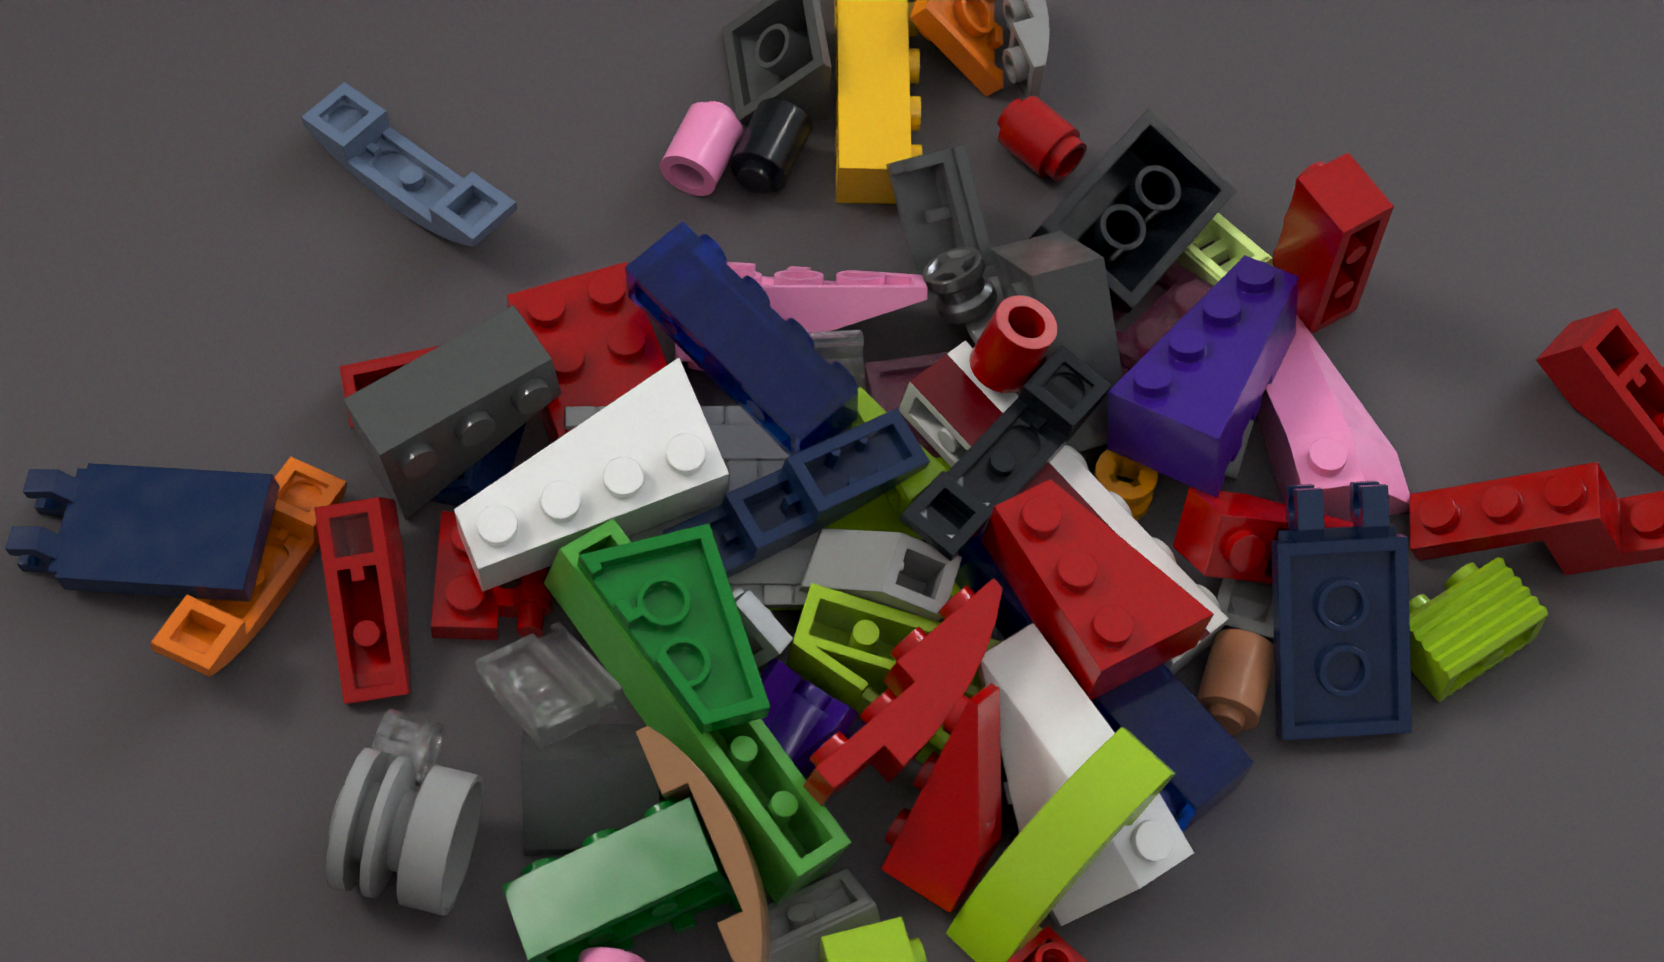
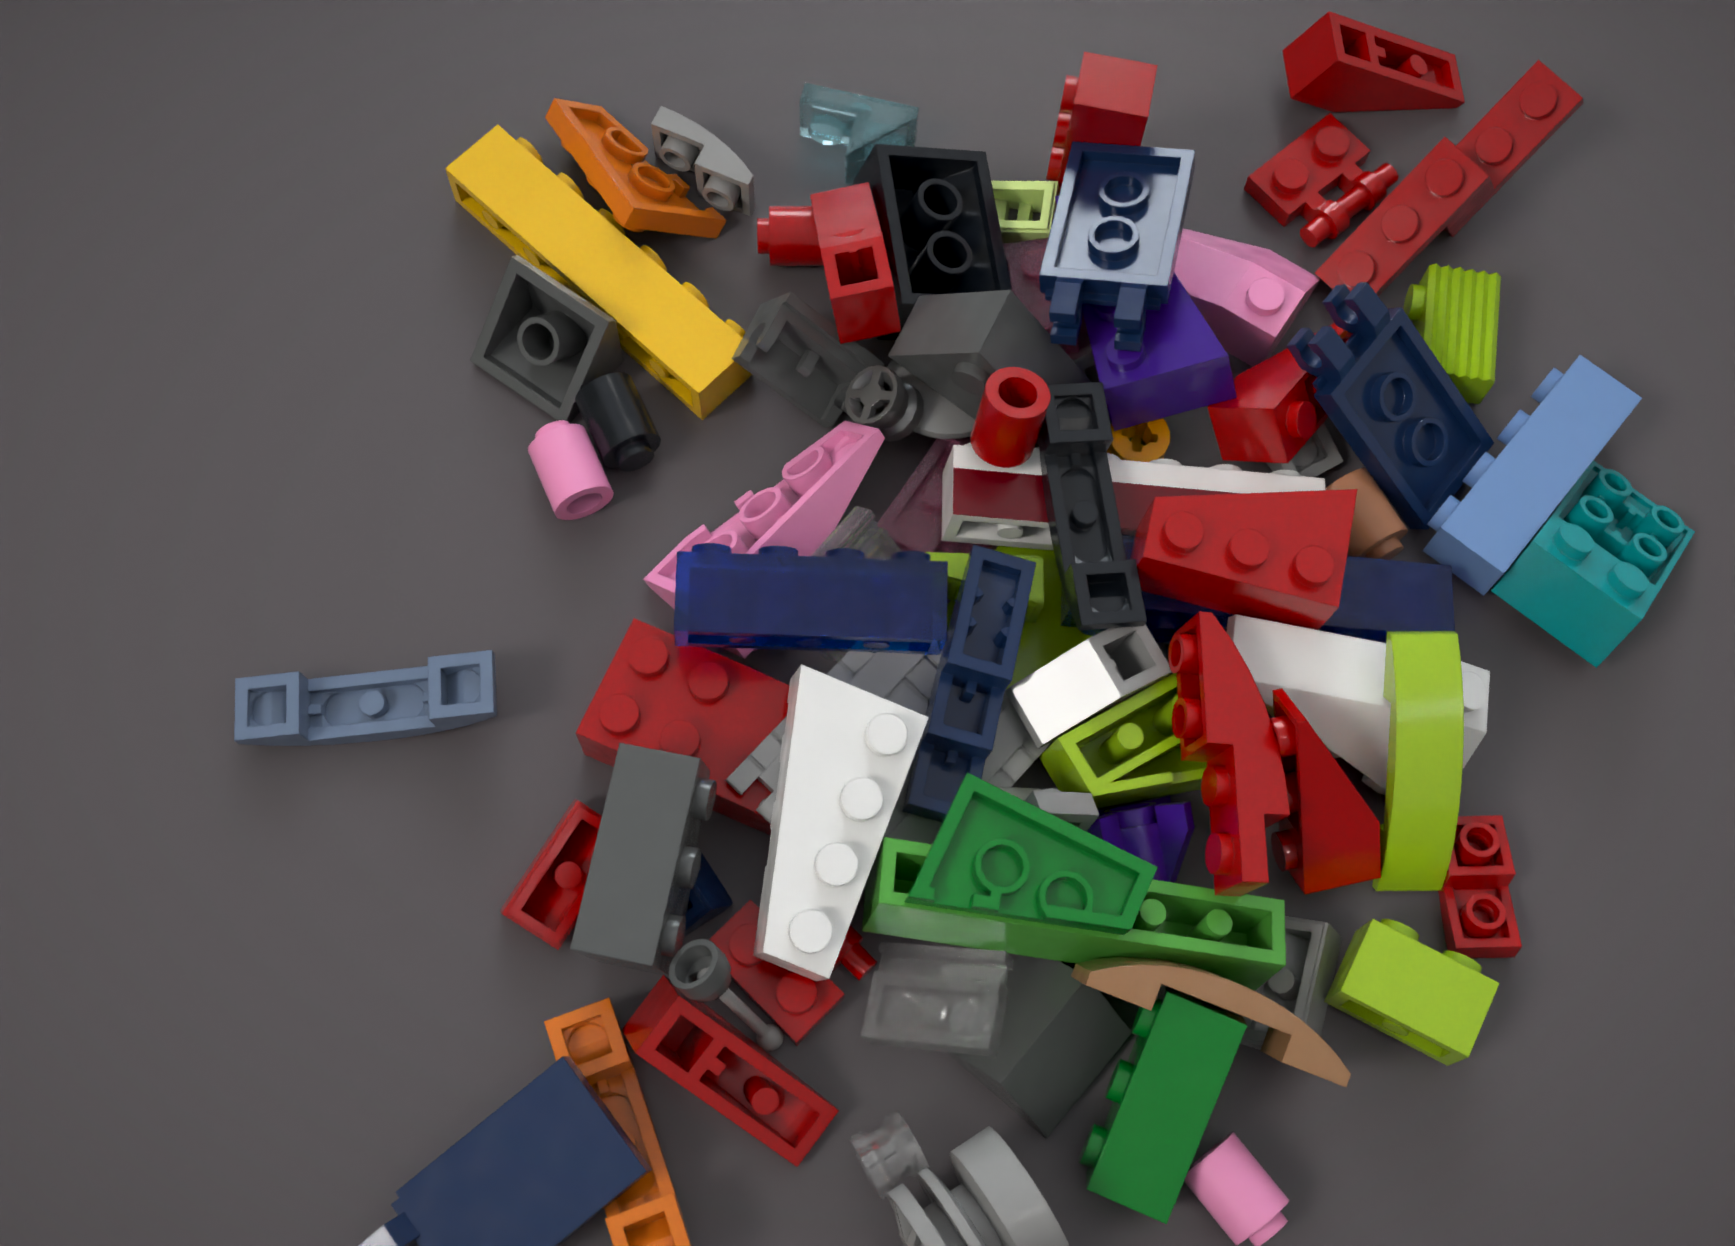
camera: 45 degrees left, 10 degrees up
(408, 500) = (704, 976): none -> dark grey hinge
(1034, 168) = (855, 263): none -> red slope
(1172, 97) = (855, 121): none -> clear light blue slope
(1234, 301) = (1115, 236): none -> dark blue tile
(1388, 878) = (1595, 564): none -> teal slope
(1406, 768) = (1530, 475): none -> medium blue brick
(1493, 426) = (1311, 167): none -> red plate

